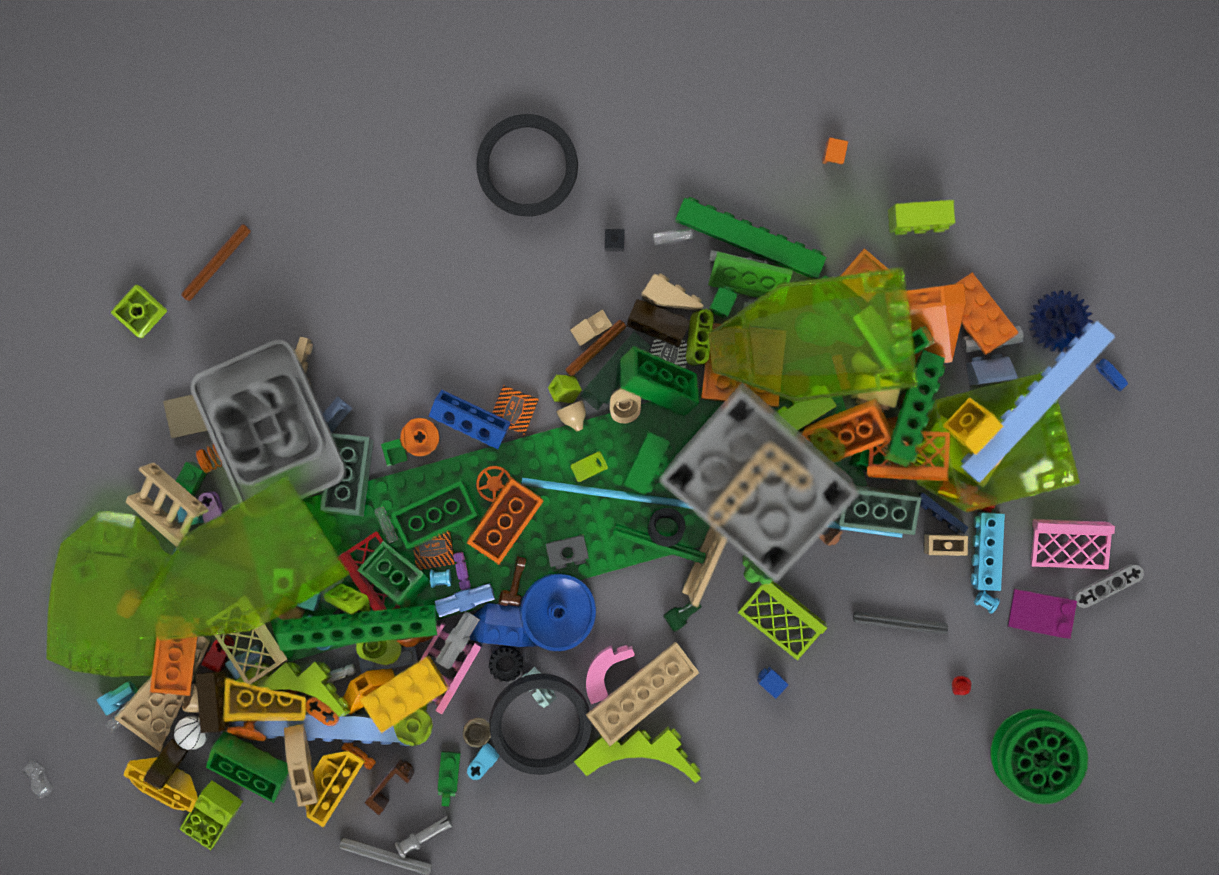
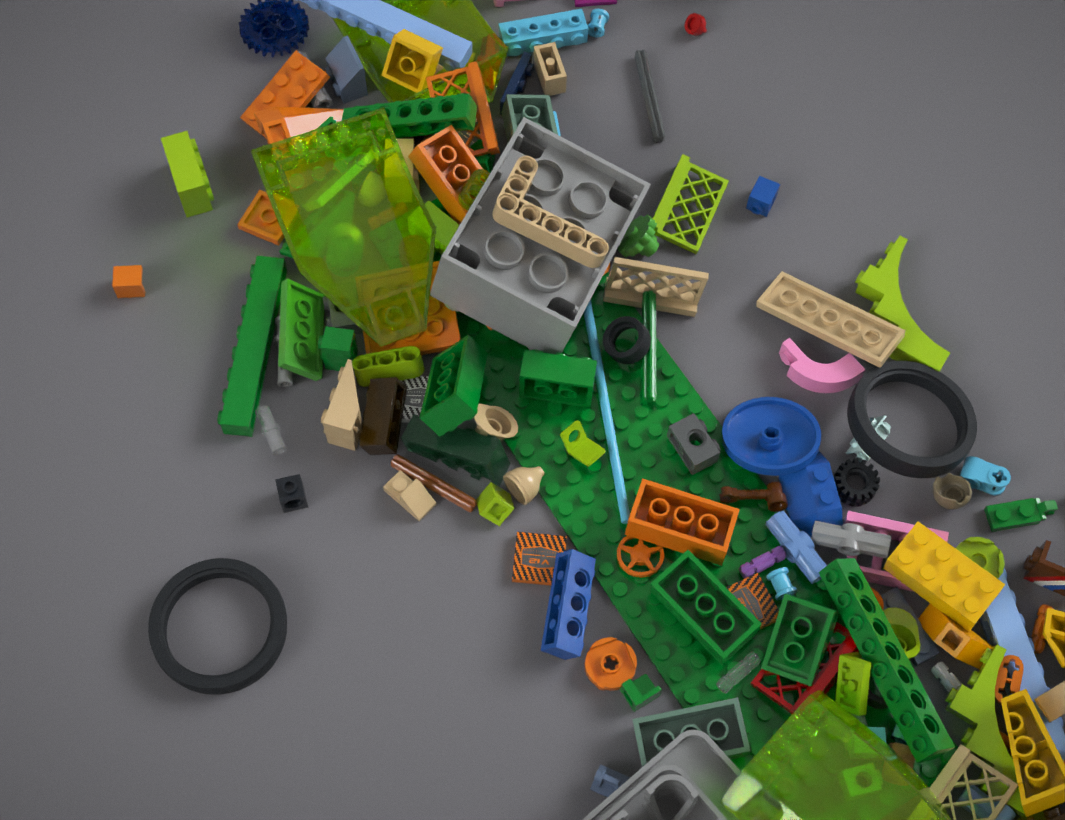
camera: 105 degrees left, 25 degrees down
(678, 617) = (725, 310): dark green pin -> none

